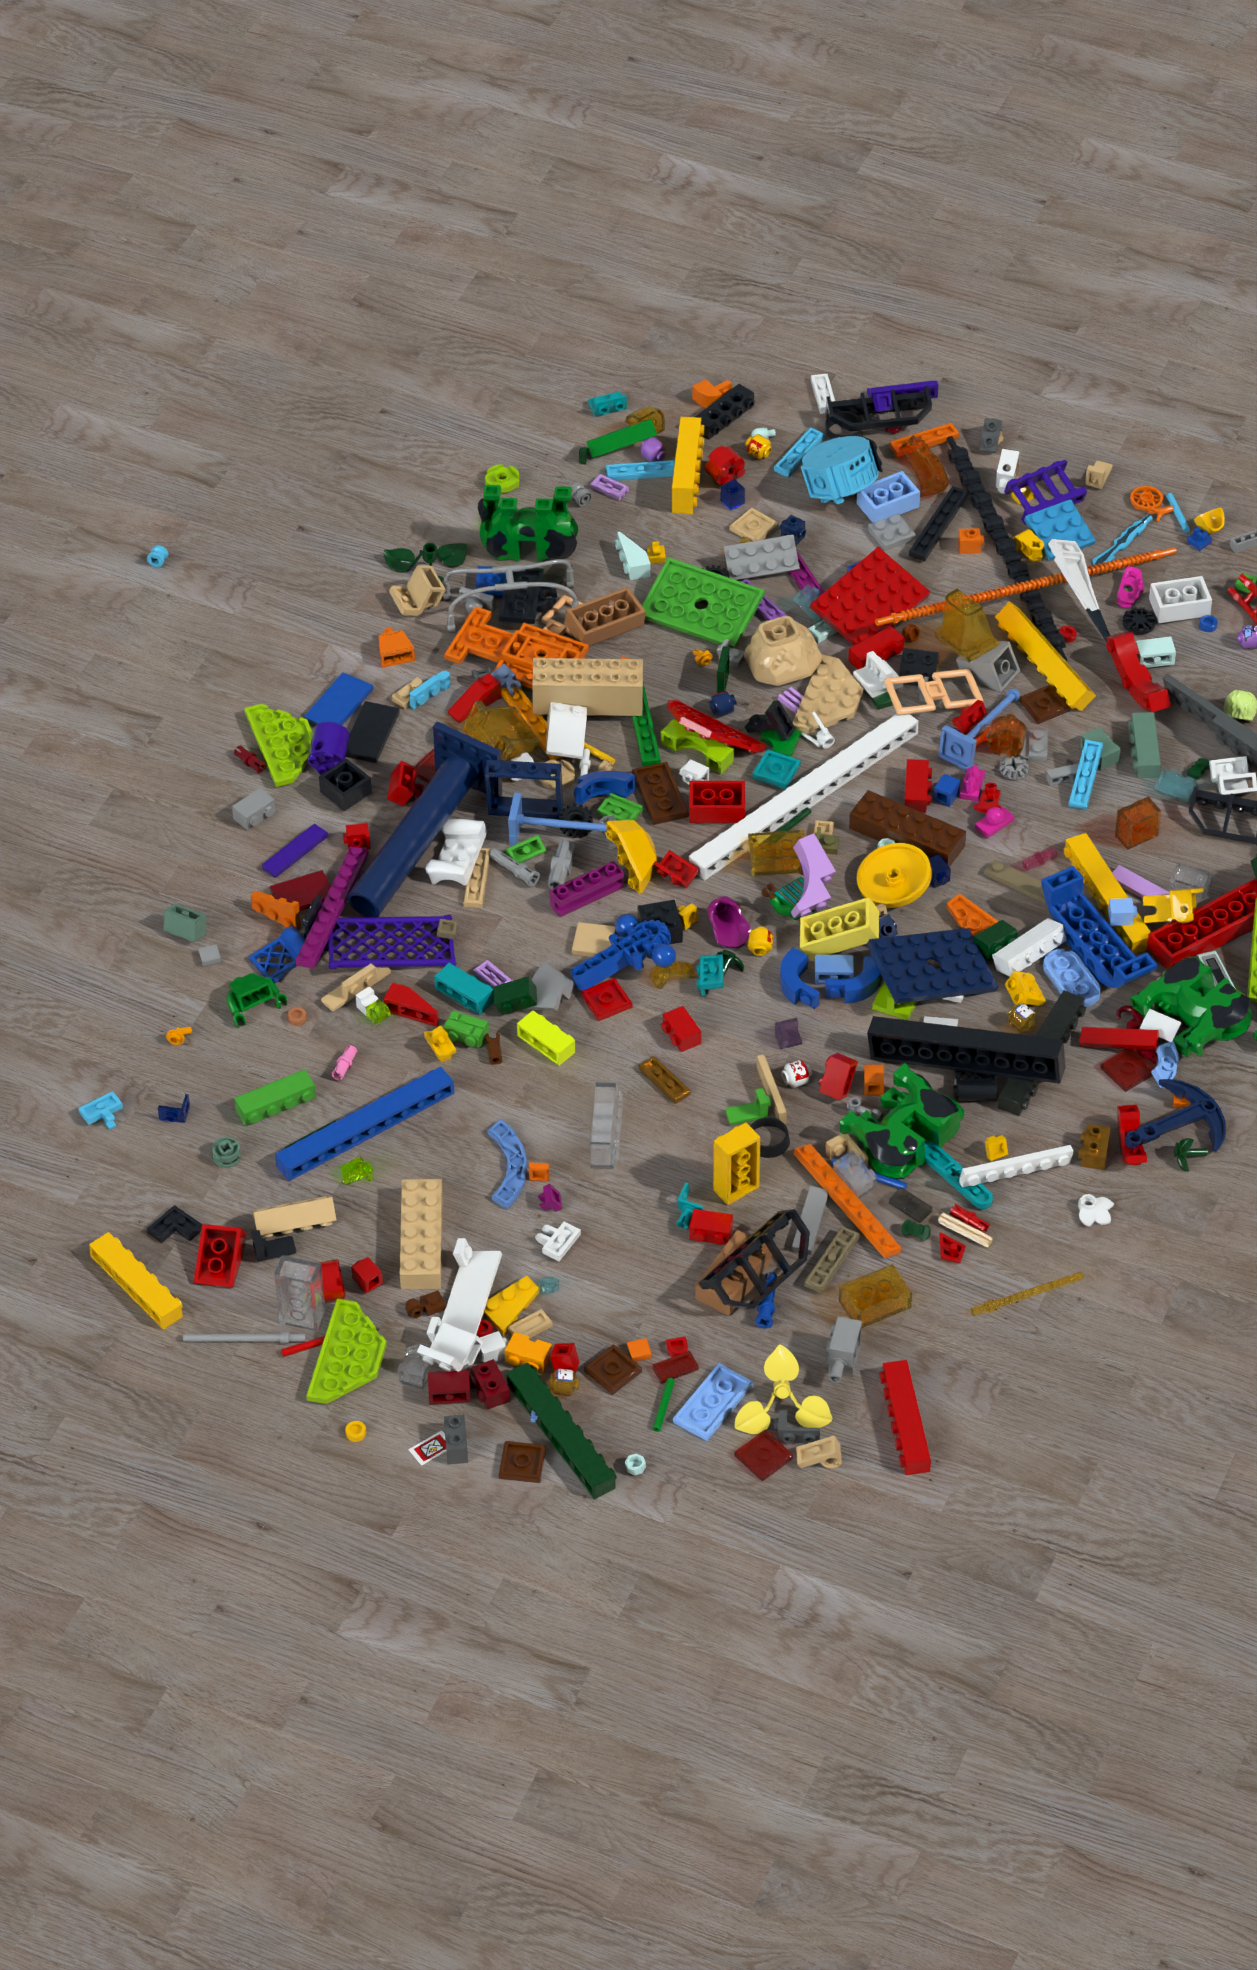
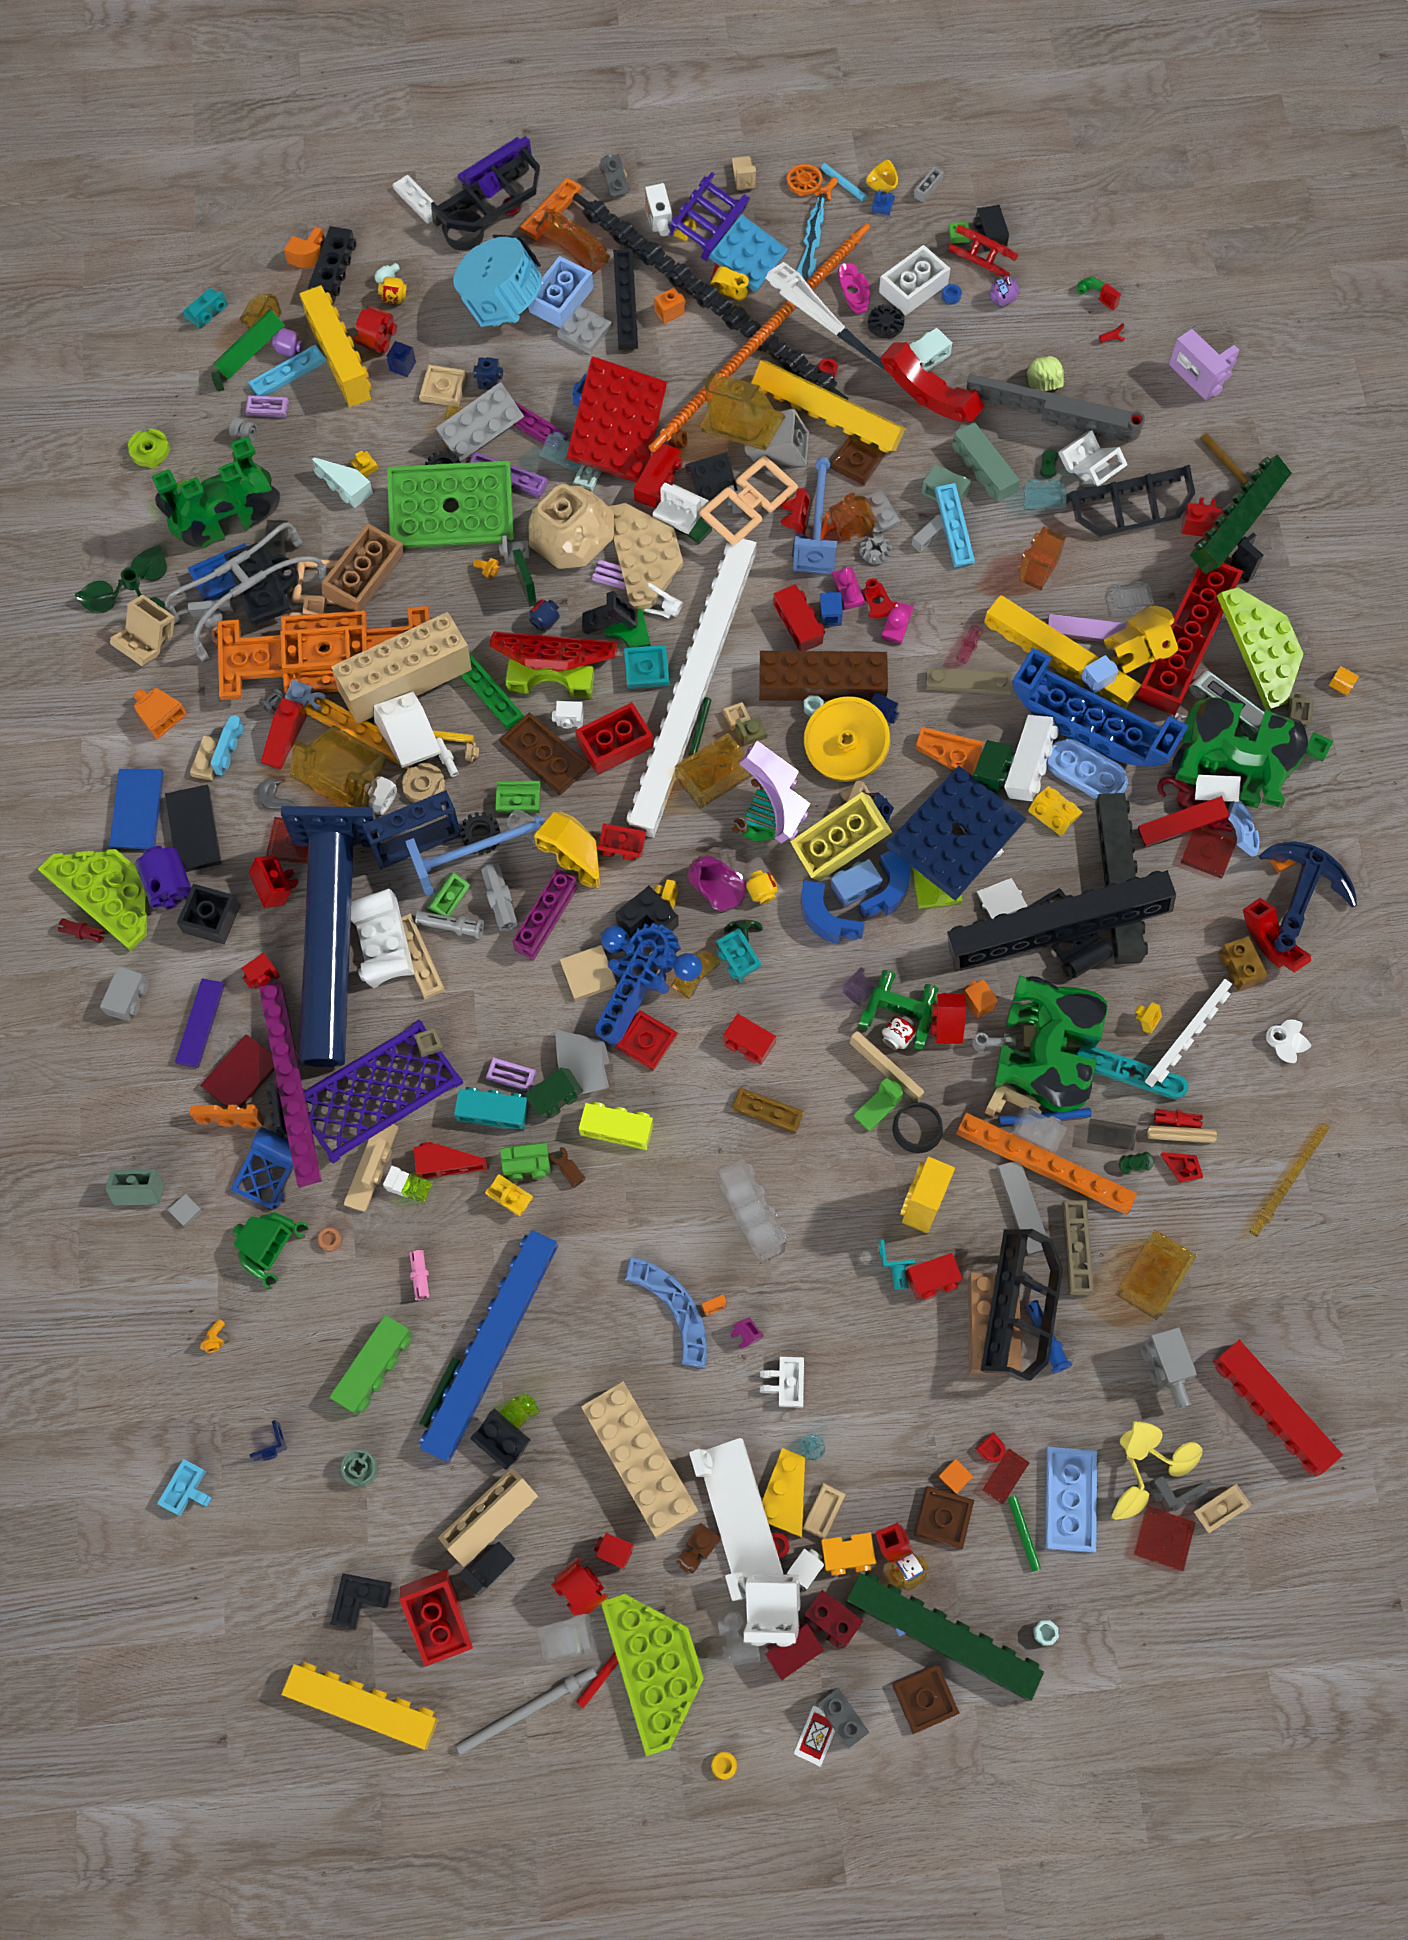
camera: 30 degrees left, 20 degrees up
(334, 1178) = (500, 1439): none -> black bracket
(604, 783) = (482, 772): blue arch -> none
(794, 456) = (435, 278): medium azure tile -> none
(802, 1049) = (900, 1004): none -> green connector
(1021, 1018) = (1076, 846): clear yellow head -> none
(1183, 1149) = (1332, 922): dark green plant -> none

